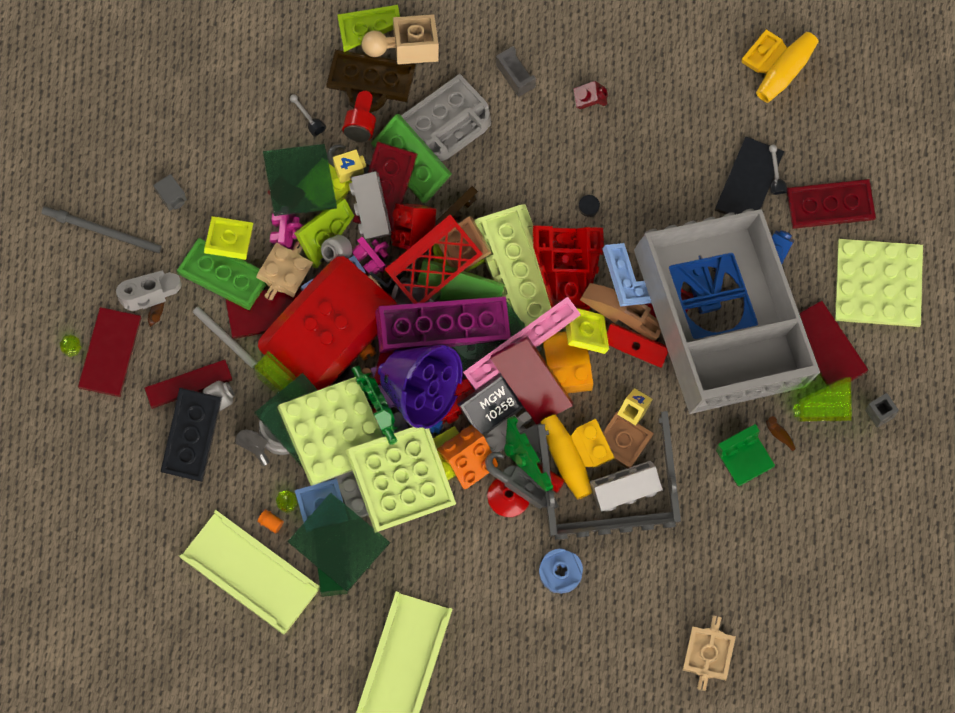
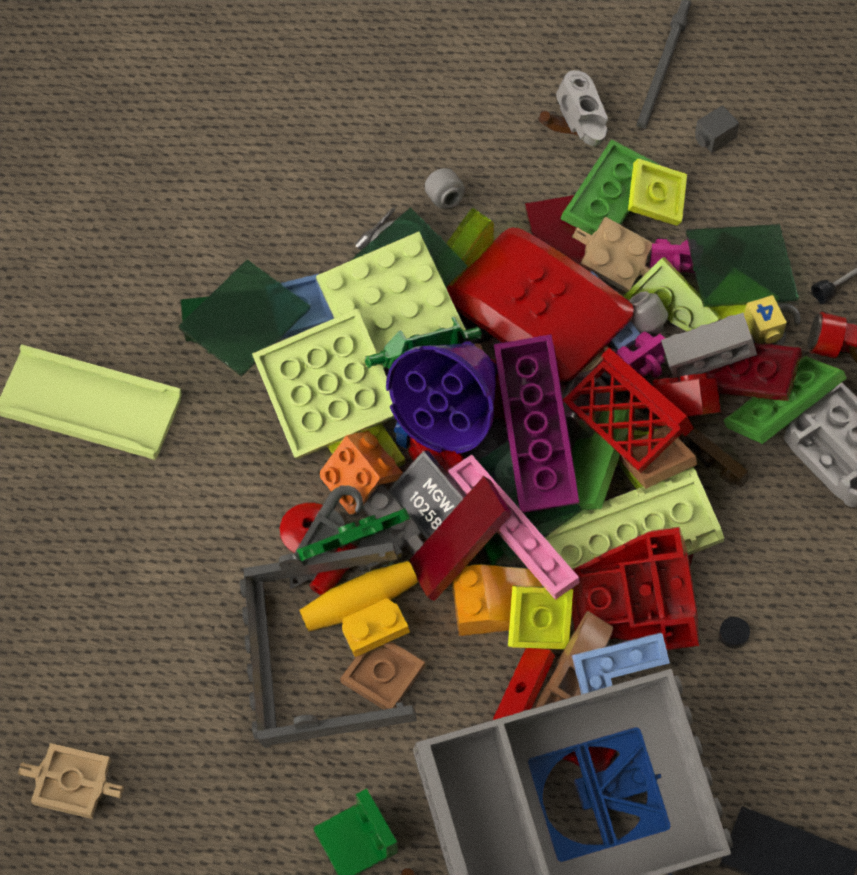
camera: 90 degrees right, 10 degrees down
(70, 345) = (511, 37): clear neon green tile -> none
(109, 352) = (503, 78): dark red tile -> none
(191, 434) = (393, 159): black tile -> none
(195, 380) = (463, 160): dark red tile -> none
(225, 337) = (528, 195): light grey bar -> none
(250, 572) = (214, 230): yellowish green ladder -> none
(270, 521) = (281, 251): orange piece -> none
(286, 501) = (306, 266): clear neon green tile -> none
(567, 560) = (194, 605): medium blue plate -> none
(626, 486) = (313, 670): brick -> none
(635, 406) = (429, 683): light yellow brick -> none

